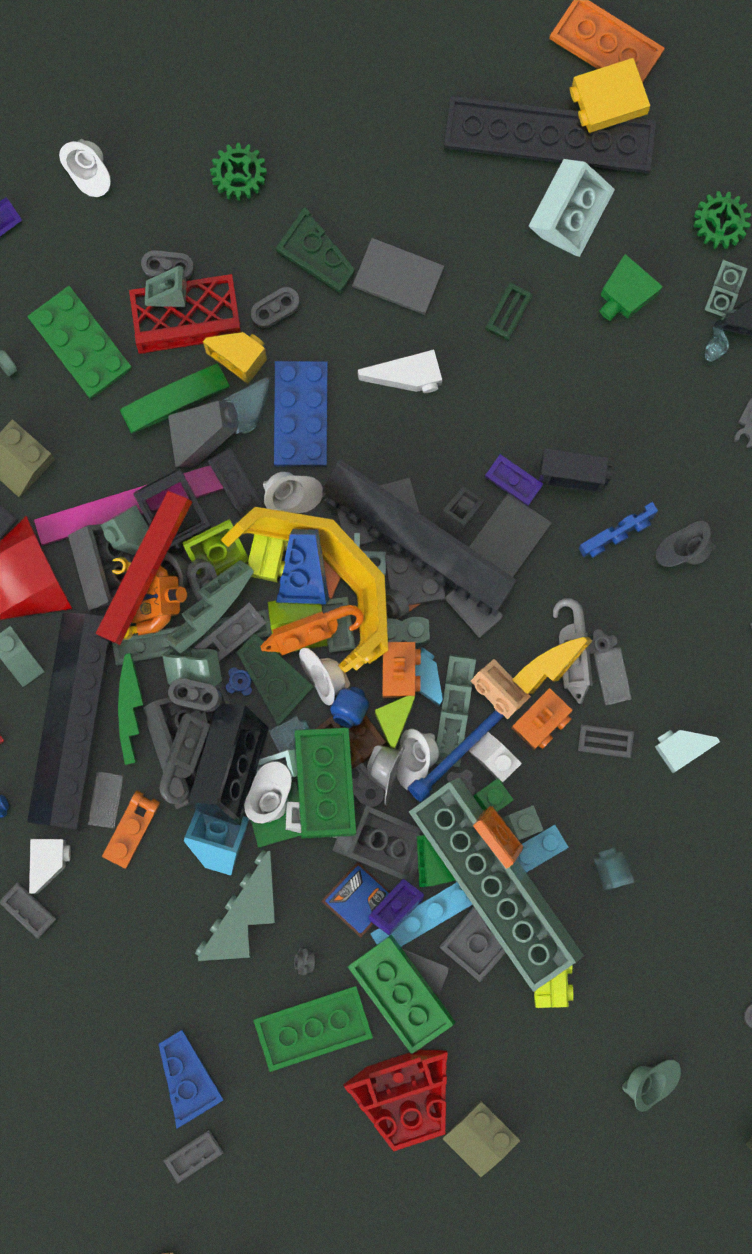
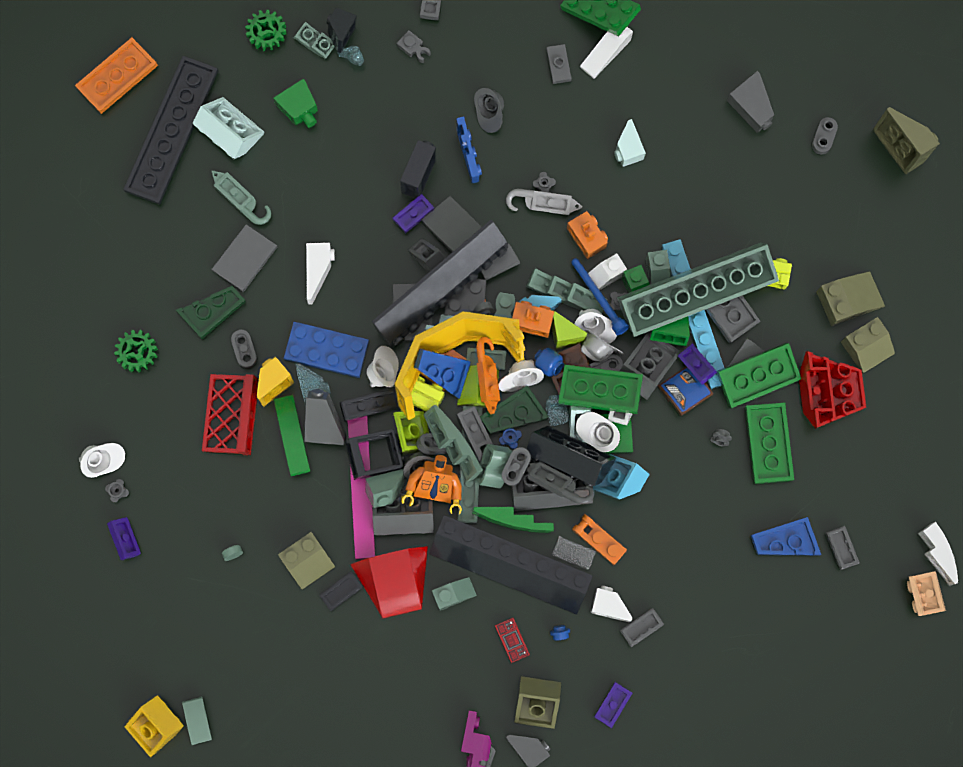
camera: 80 degrees left, 5 degrees down
(53, 191) = (119, 484): none -> dark grey plate
(79, 342) = (230, 496): green plate -> none
(143, 567) = (414, 480): red tile -> none
(167, 261) = (190, 418): dark grey plate -> none
(167, 289) = (209, 421): sand green slope -> none
(251, 907) = (674, 465): sand green slope -> none
(479, 246) = (238, 197): none -> sand green plate
(498, 836) = (667, 277): orange tile -> none
(499, 330) = (302, 199): dark green tile -> none
(499, 689) = (559, 257): light nougat bracket -> none
(544, 1100) = (850, 297): none -> olive slope
(550, 664) = (551, 216): yellow slope -> none
(610, 95) = (156, 79): yellow brick -> none
(612, 676) = (568, 180): clear tile -> none
(613, 869) = (704, 211): clear light blue slope -> none
(628, 744) = (606, 211): dark grey tile -> none
(652, 1084) = (854, 223): sand green piece -> none

